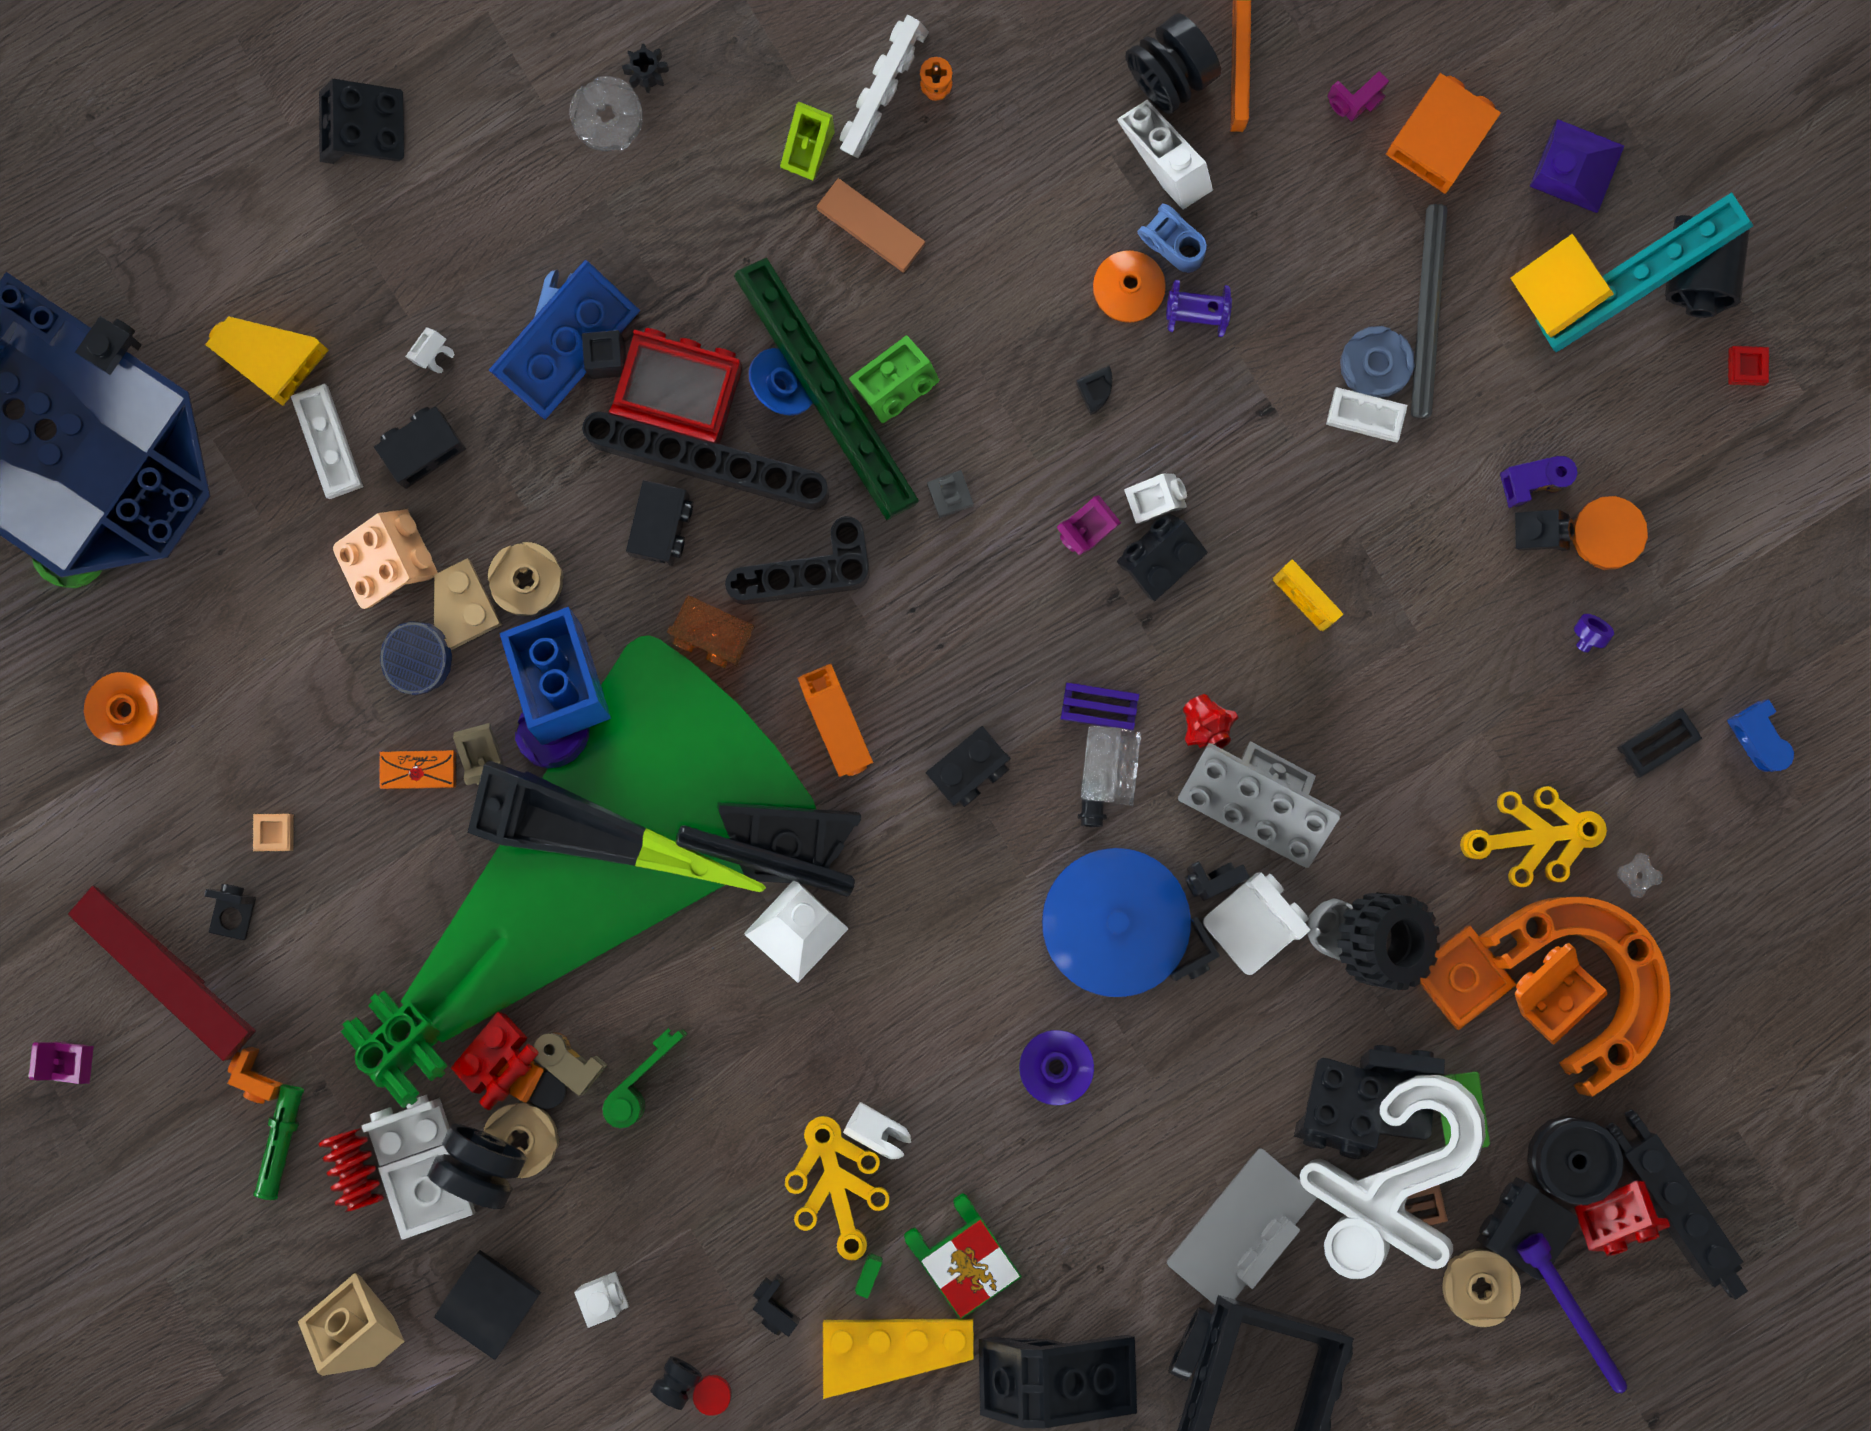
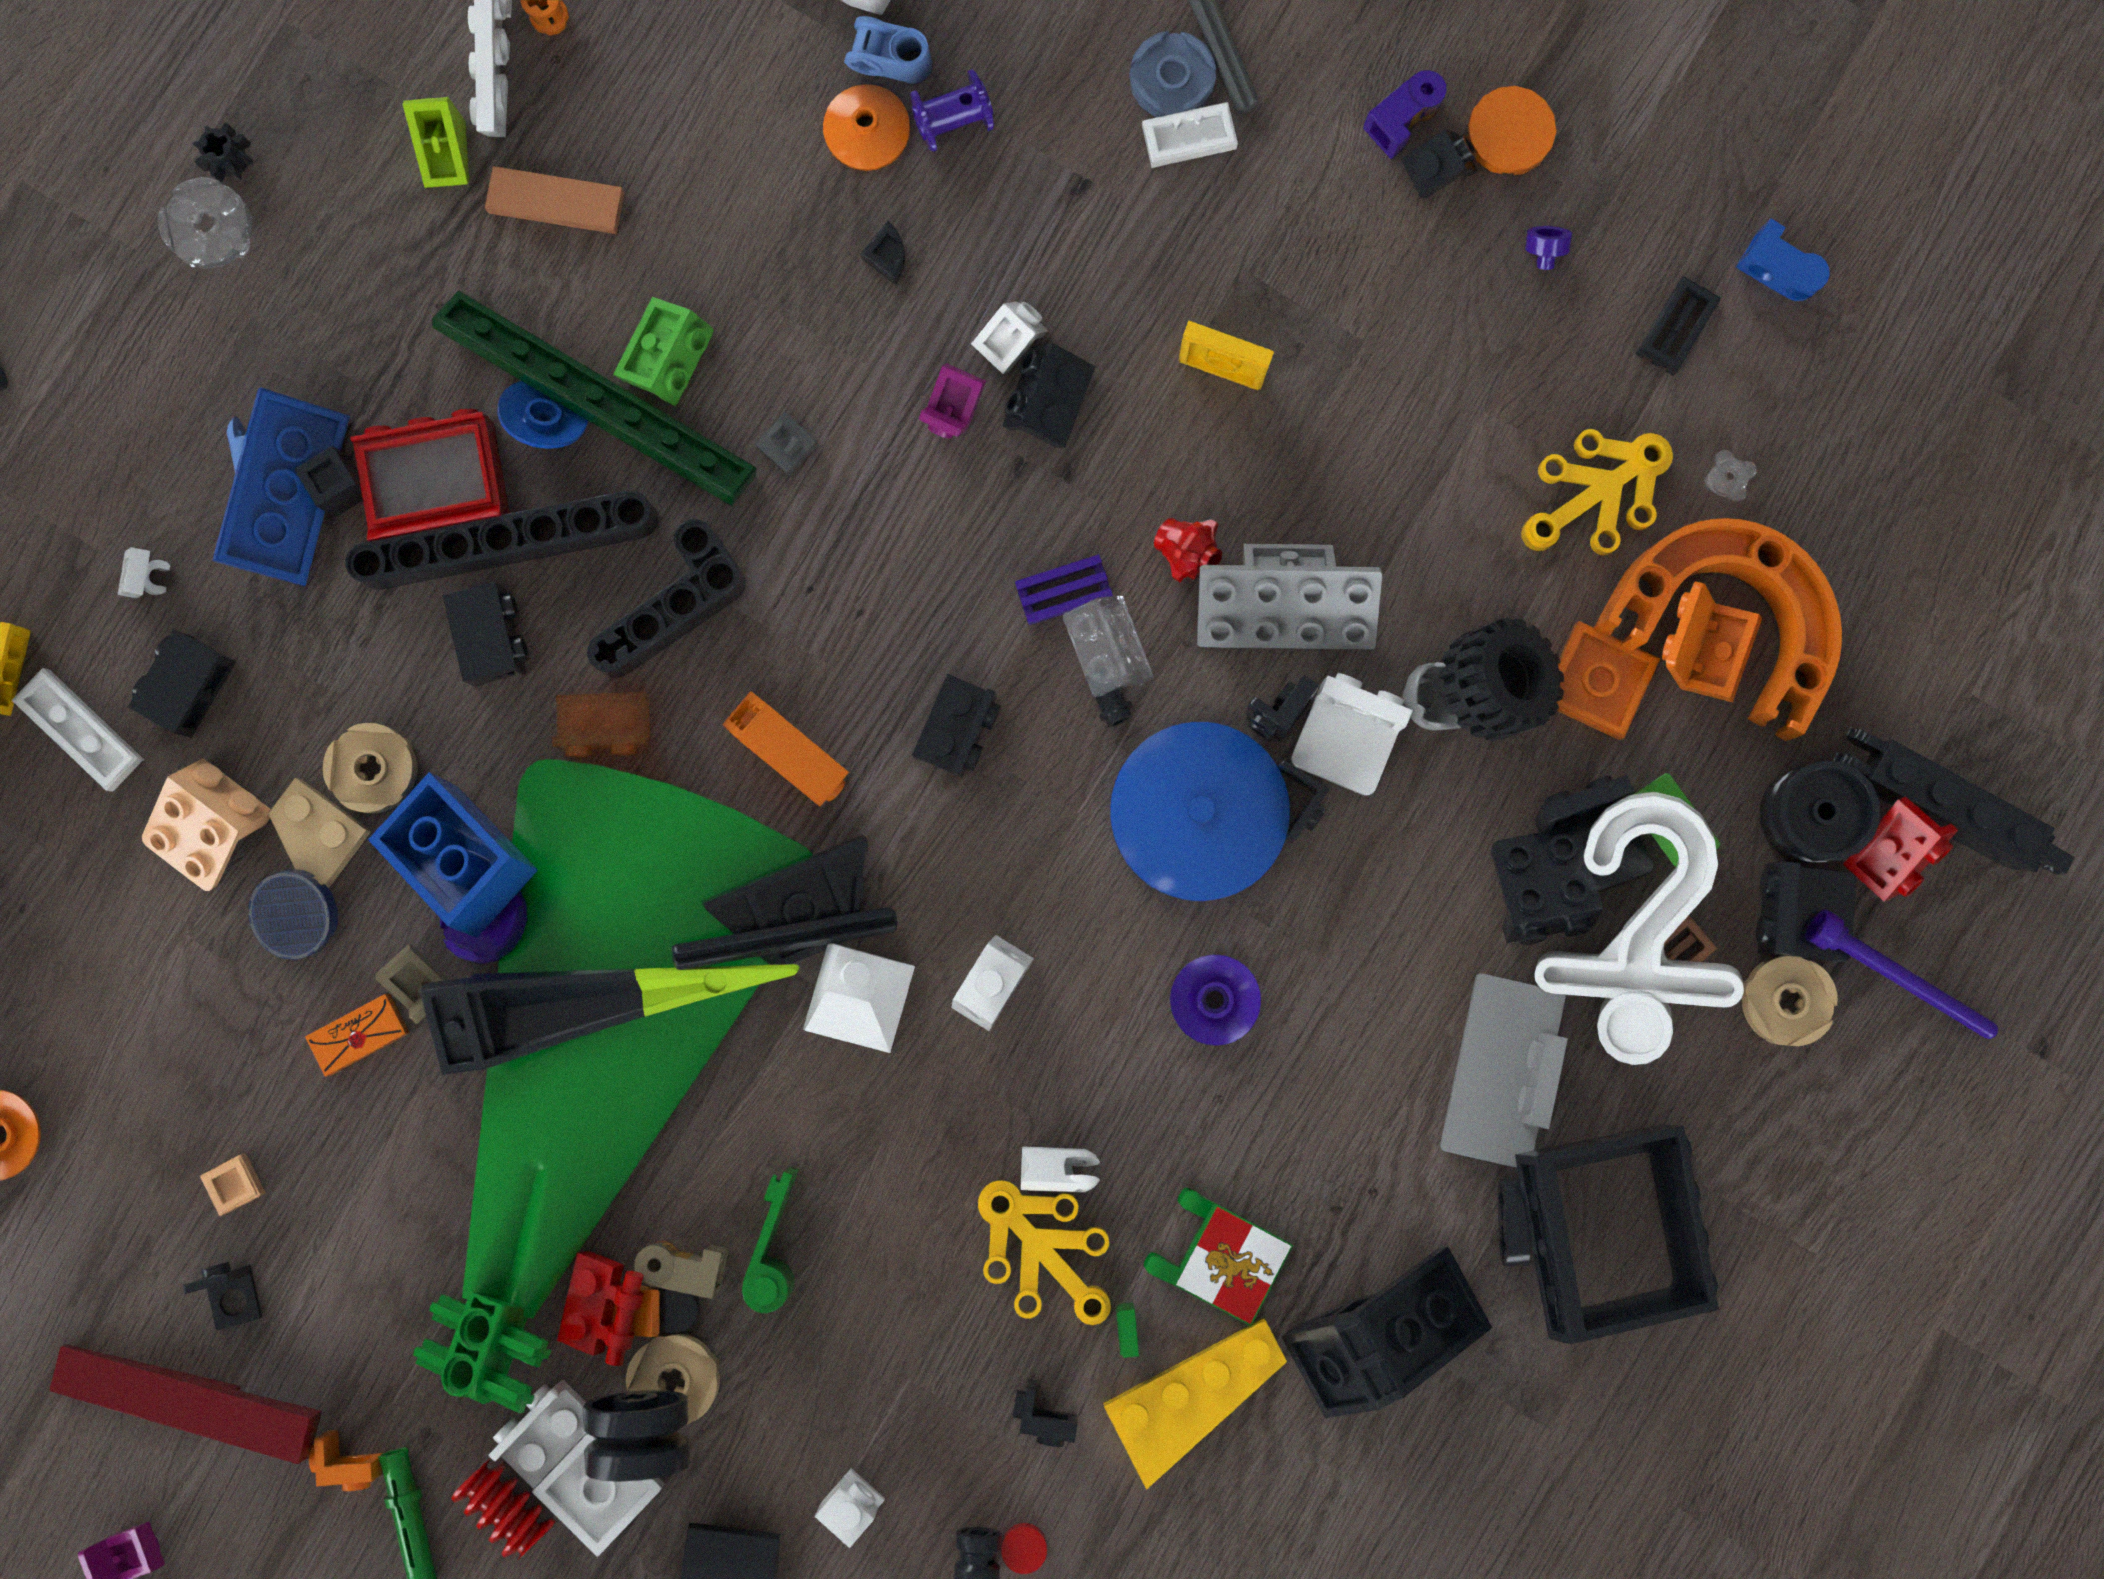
camera: 25 degrees left, 0 degrees up
(899, 970) = (991, 982): none -> white torso

